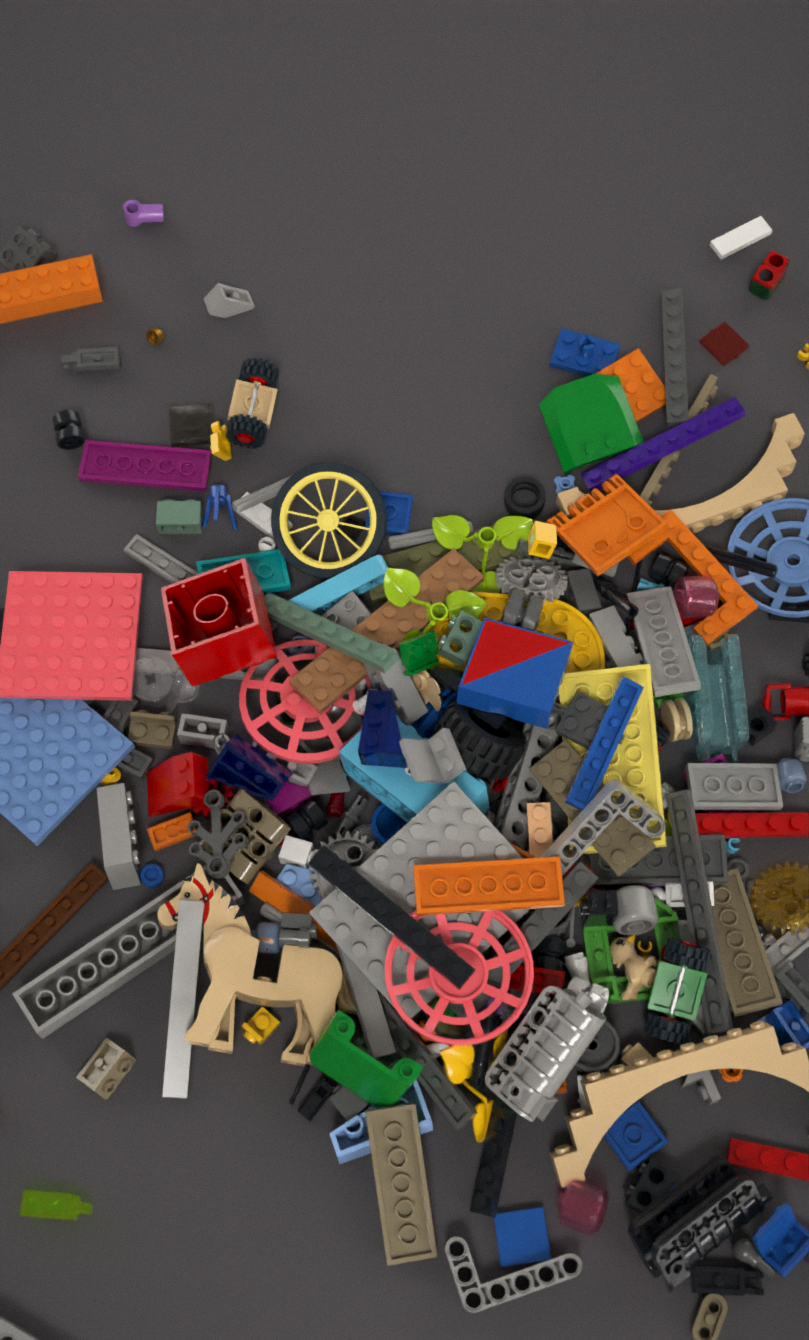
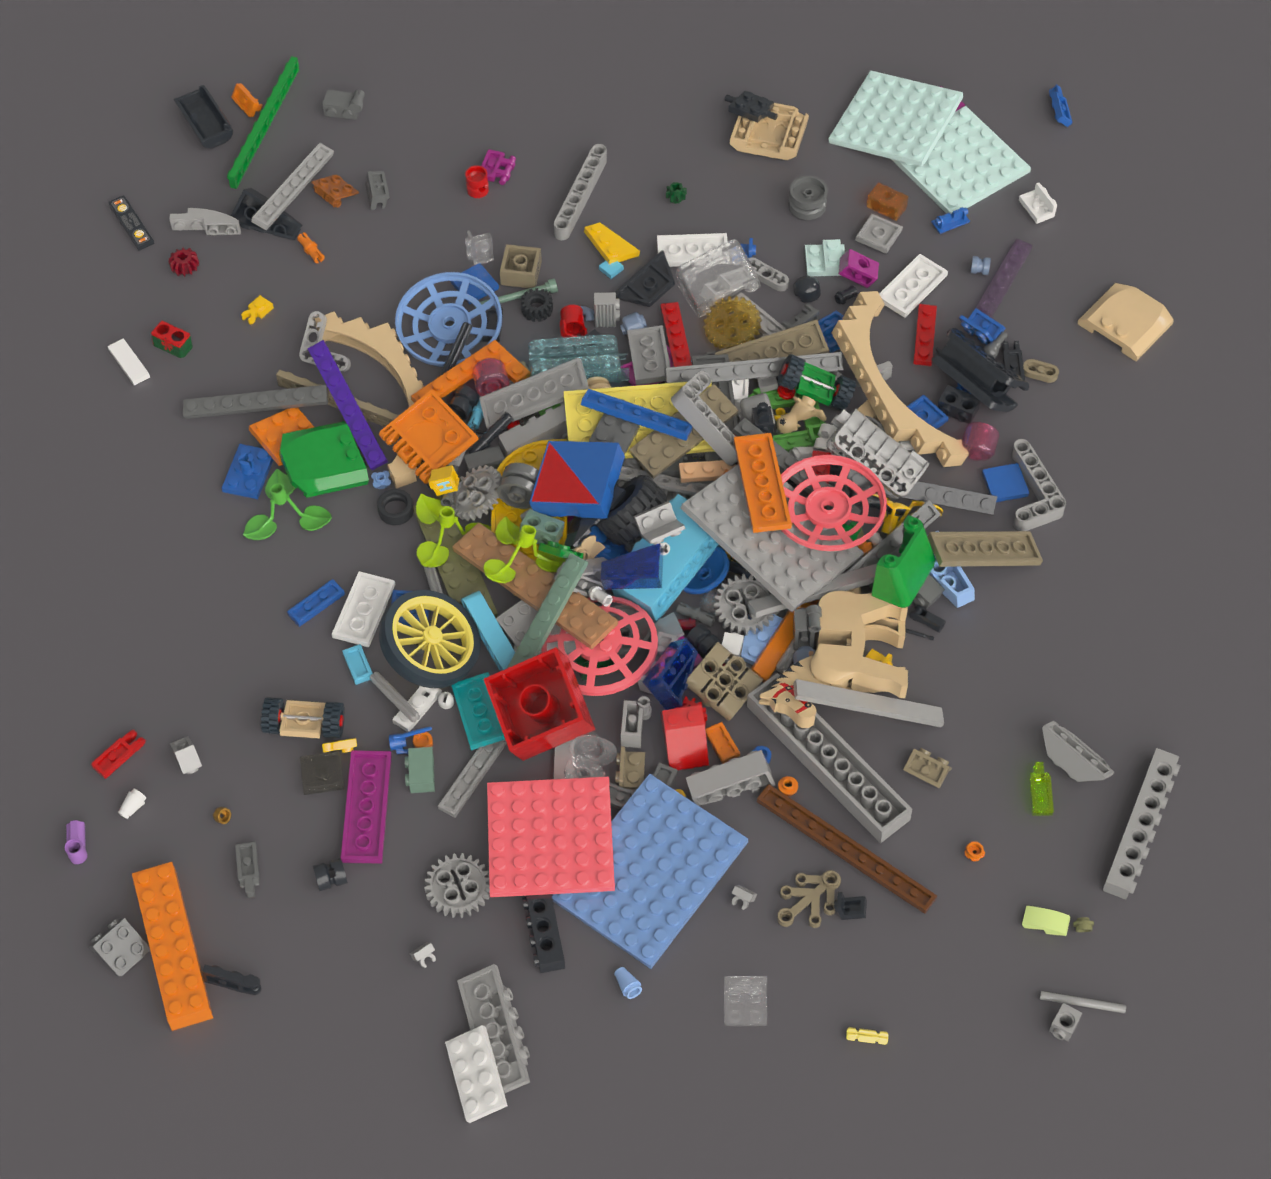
camera: 95 degrees left, 10 degrees down
(33, 532) = (439, 892): none -> light grey gear
(90, 1260) = (1074, 755): none -> light grey wedge
(111, 906) = (788, 791): none -> orange plate
(181, 259) = (132, 803): none -> white cone
(218, 837) = (733, 692): dark grey plant -> none
(221, 525) = (422, 740): none -> orange tile
(238, 244) = (117, 754): none -> red hinge
(331, 454) = (357, 664): none -> medium azure tile
(392, 465) = (363, 609): none -> white plate
(392, 917) = (793, 545): black plate -> none
(405, 421) = (315, 602): none -> blue tile
(510, 366) = (278, 490): none -> bright green plant
(724, 343) = (237, 373): clear red piece -> none
(780, 413) = (306, 342): none -> light grey beam

